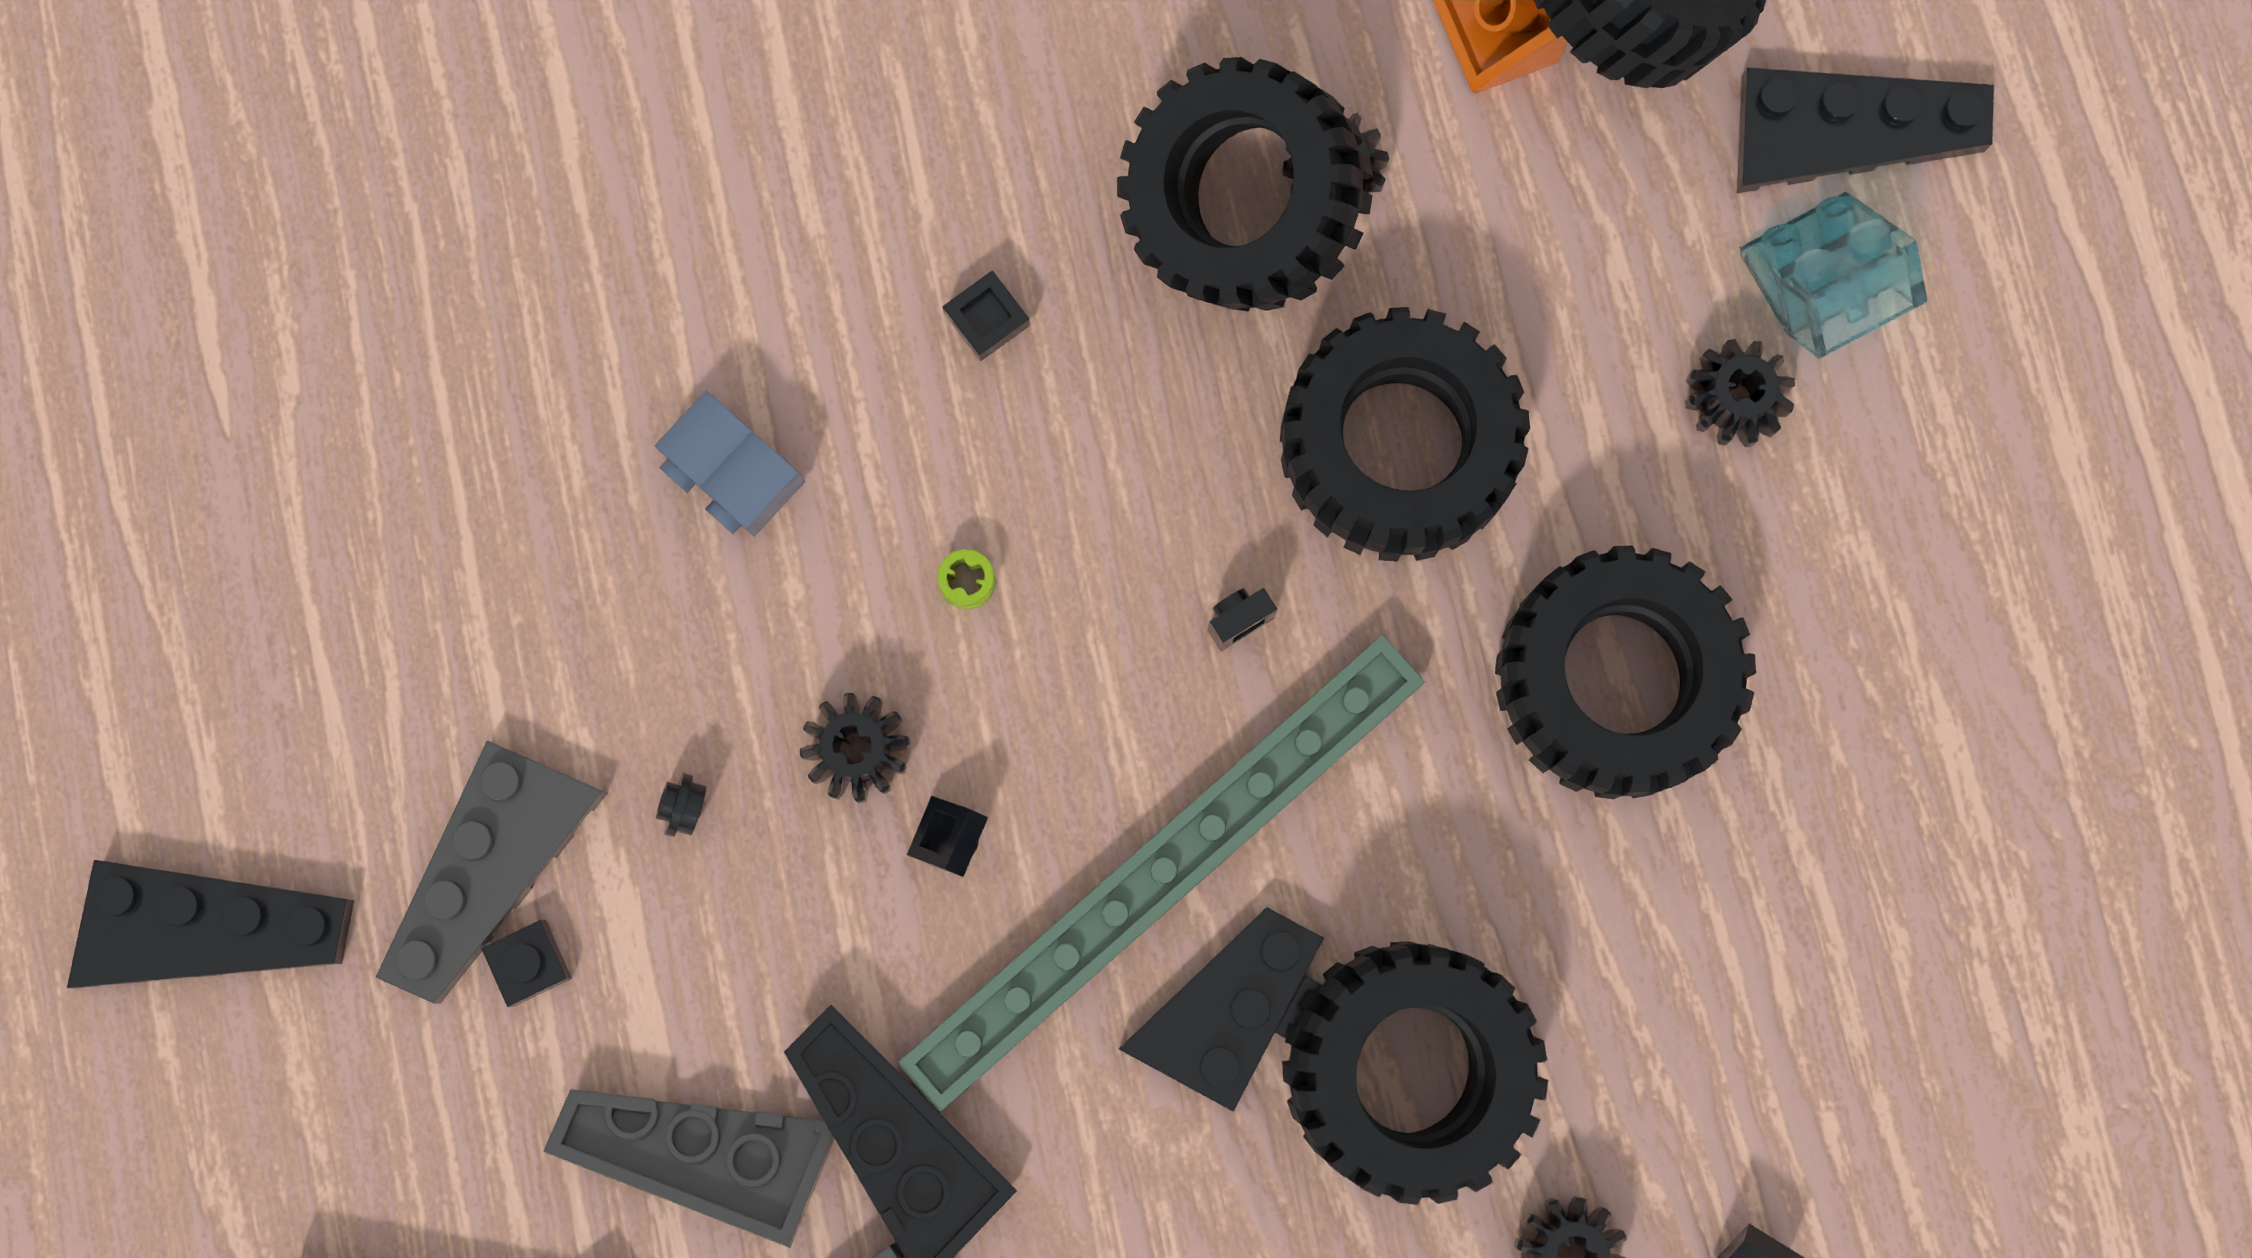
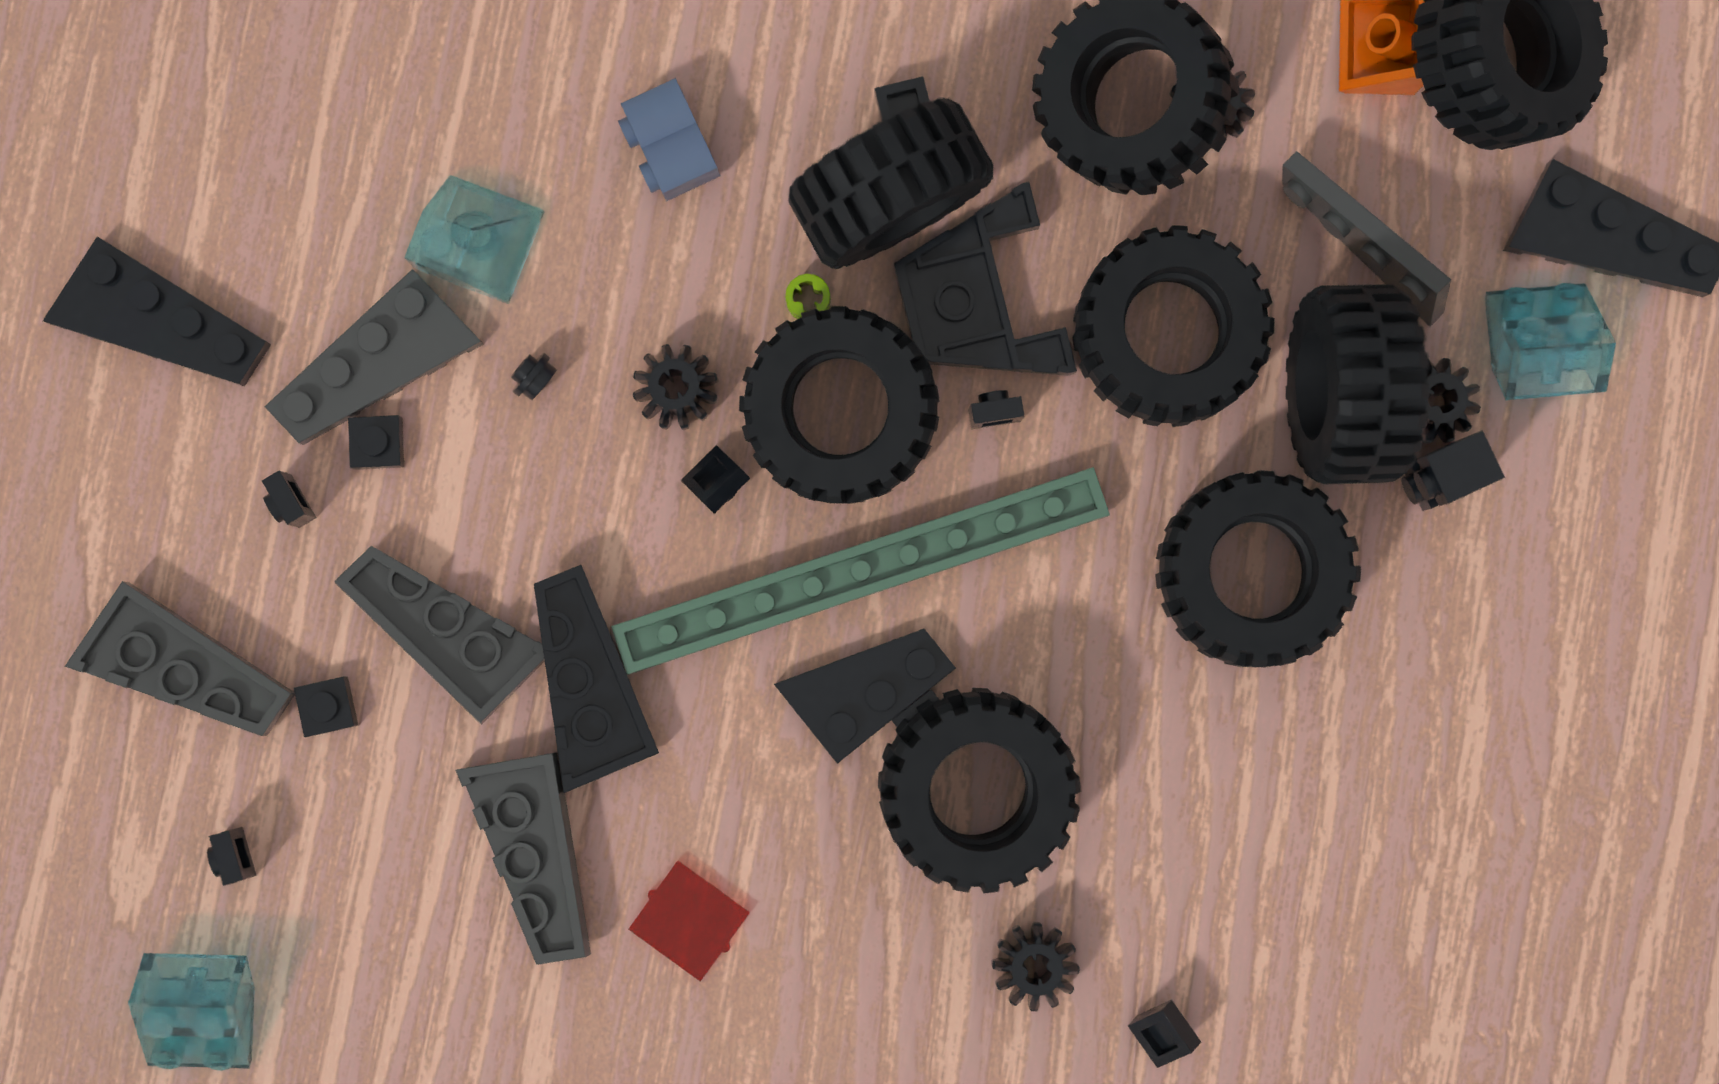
camera: 20 degrees right, 5 degrees up
(447, 1078) = (286, 500): none -> black plate
(546, 674) = (474, 238): none -> clear light blue slope
(971, 672) = (790, 357): none -> black tyre
(1007, 404) = (890, 182): none -> black tyre
(1143, 510) = (958, 300): none -> black wing
(1600, 247) = (1367, 237): none -> dark grey wing
(1646, 409) = (1356, 384): none -> black tyre
(1796, 465) = (1452, 472): none -> black brick

